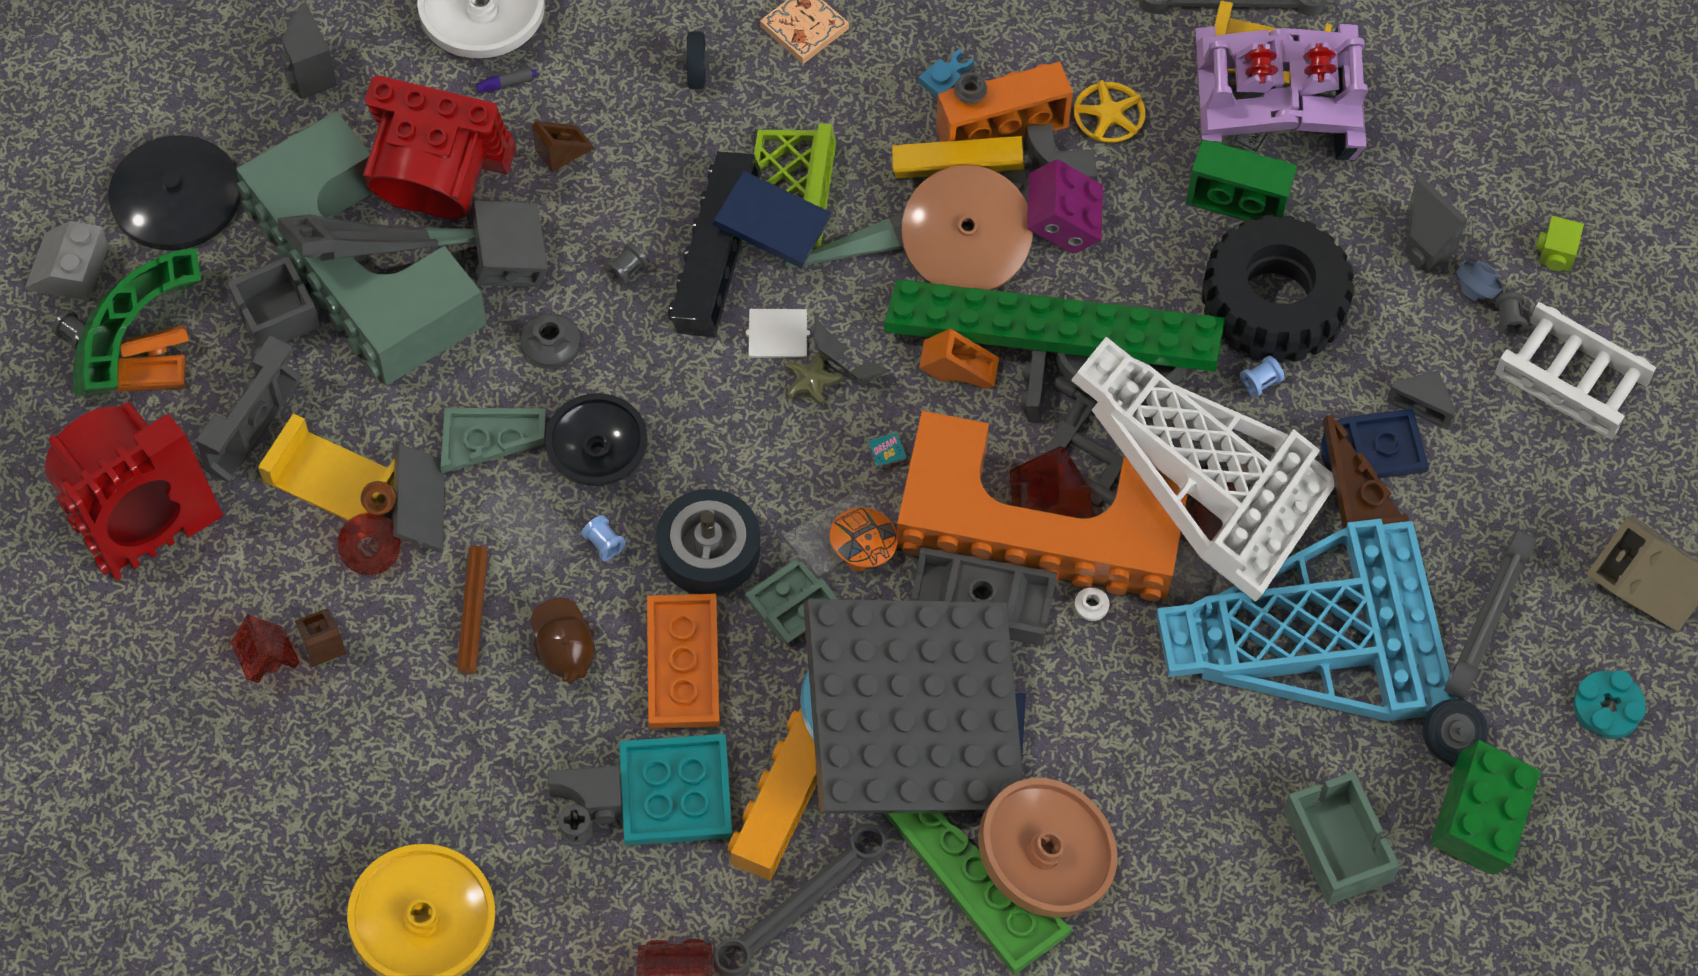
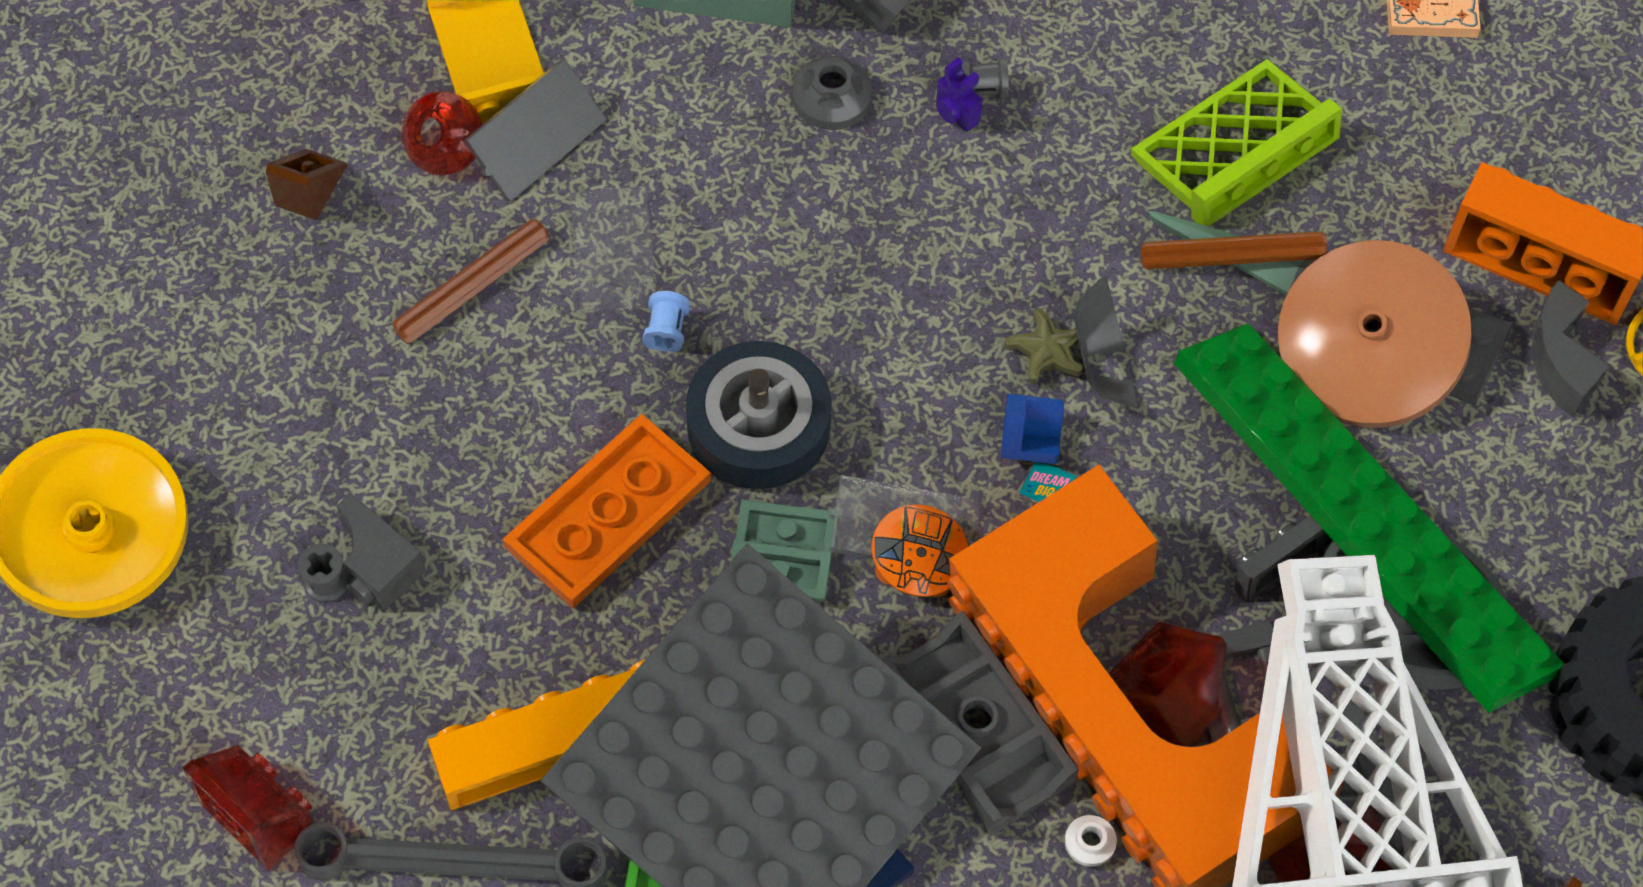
camera: 45 degrees right, 0 degrees up
(262, 648) = (242, 143): clear red panel -> none
(375, 506) = (476, 91): dark orange plate -> none
(489, 433) = (672, 128): sand green wing -> none
(563, 639) = (515, 383): reddish brown hair -> none
(592, 423) = (753, 197): black dish -> none
(626, 285) = (956, 96): none -> dark purple plate
(675, 790) = (457, 630): teal plate -> none
(712, 252) = (1093, 131): black brick -> none
(772, 219) = (1169, 149): dark blue tile -> none
(777, 333) = (1063, 272): white piece -> none
(850, 428) = (1032, 428): none -> blue panel
(852, 247) = (1233, 250): none -> dark orange axle
(932, 157) = (1475, 268): yellow panel -> none
(944, 76) = (1532, 164): dark azure plate -> none
(957, 358) = (1222, 459): orange arch -> none
(970, 81) = (1525, 172): dark grey plate -> none
(1065, 206) = (1509, 397): magenta piece -> none
(1262, 376) = (1551, 770): light blue bush -> none

